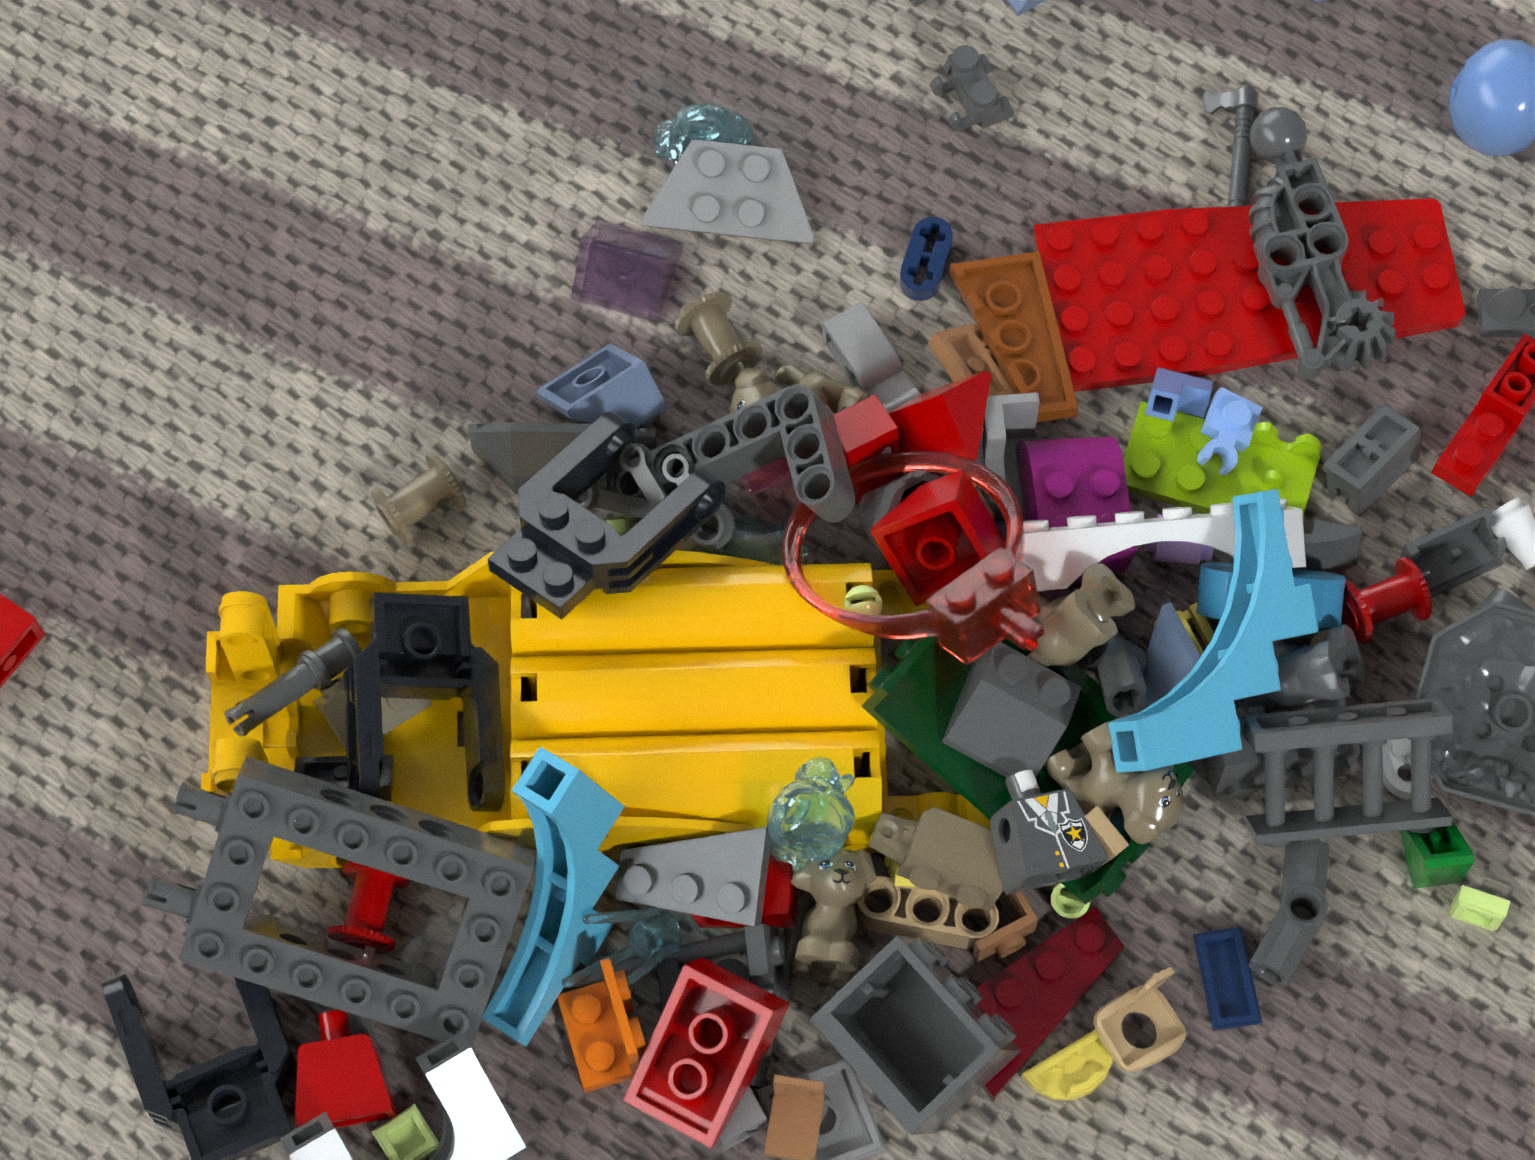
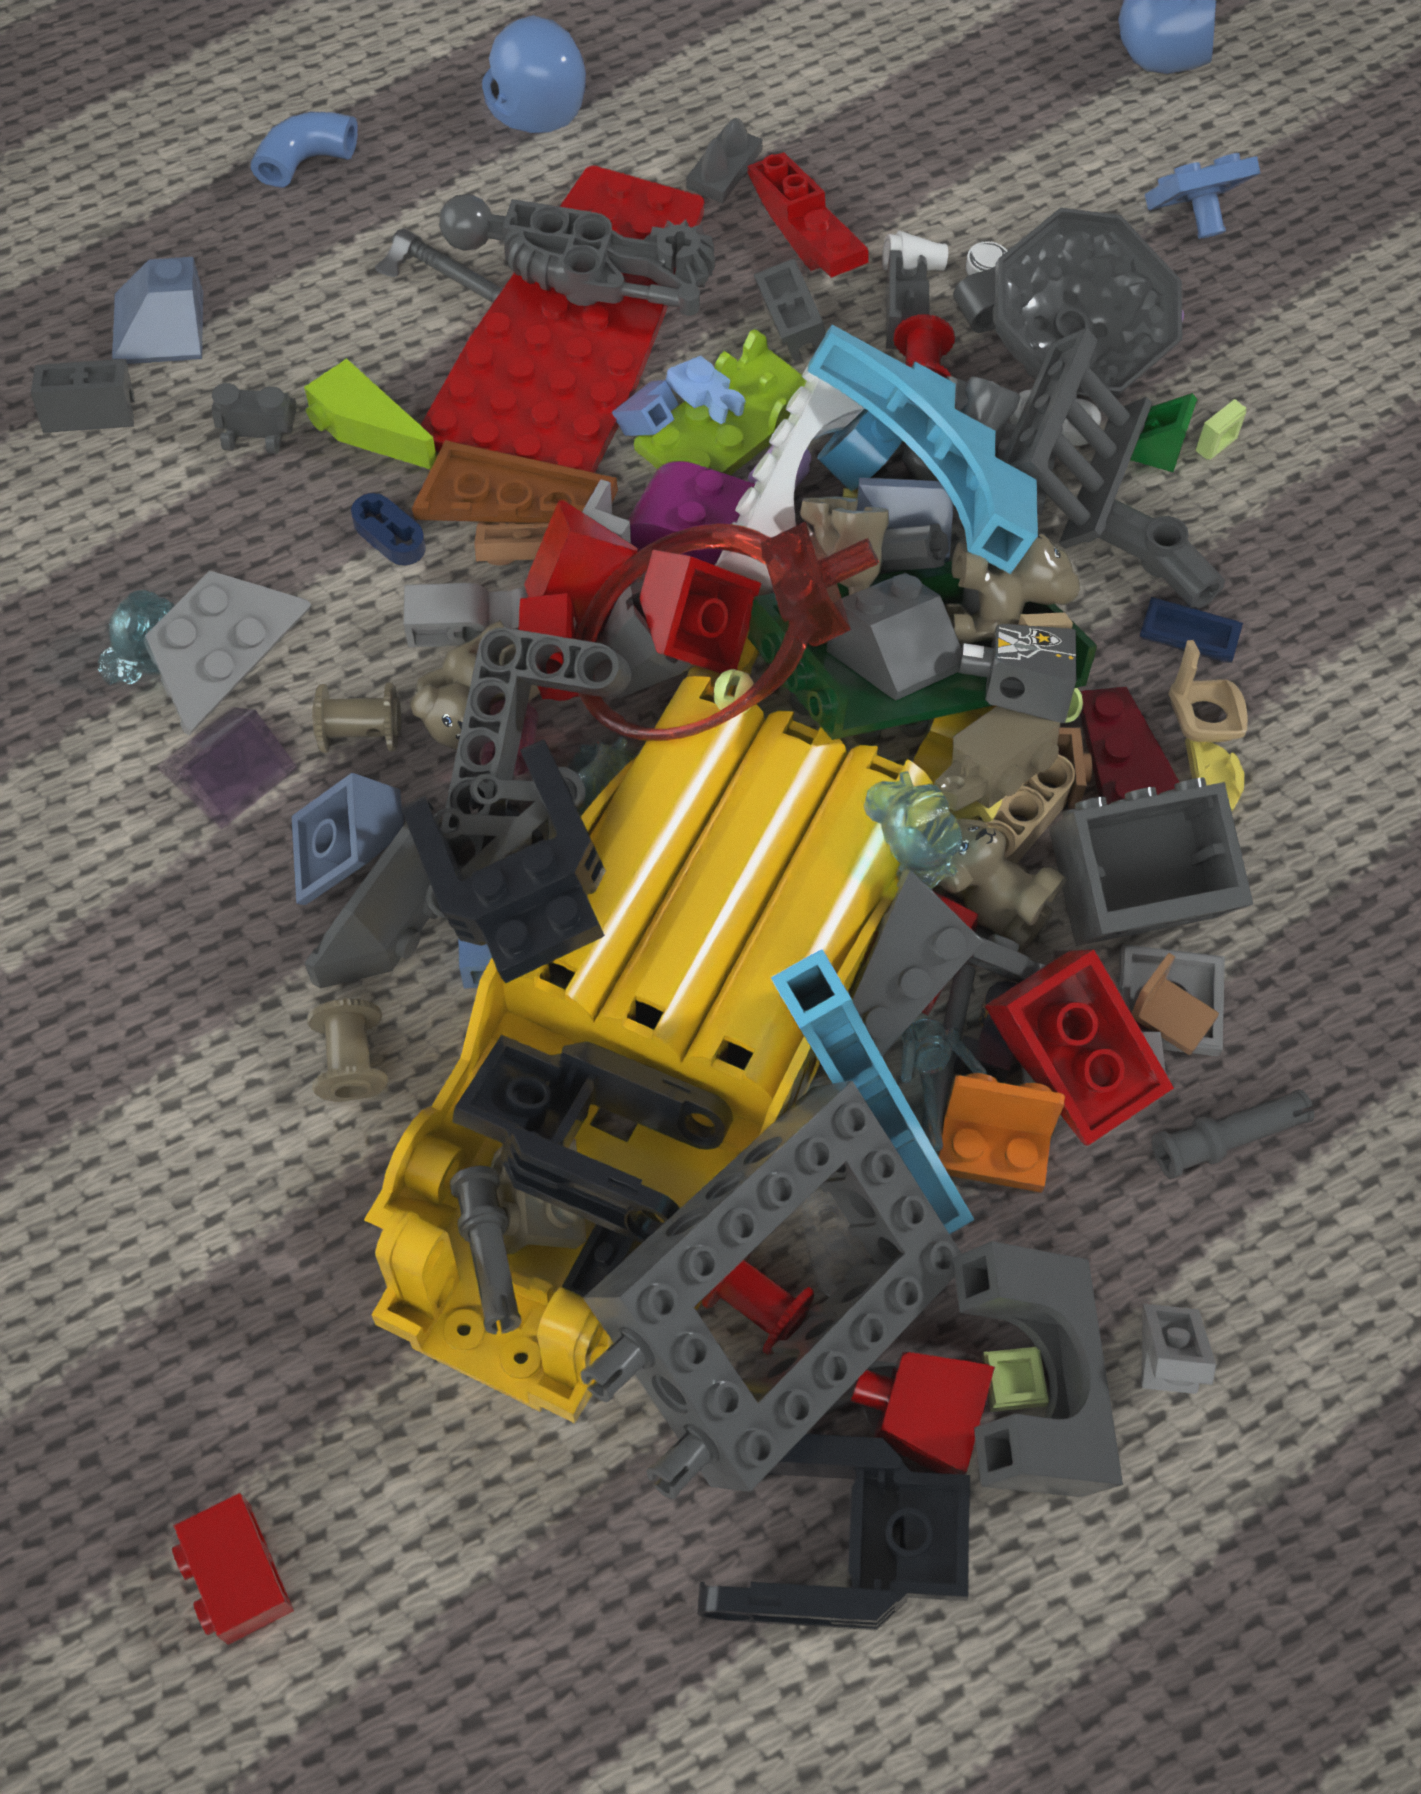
camera: 65 degrees left, 5 degrees down
(1026, 167) = (365, 417): none -> lime slope

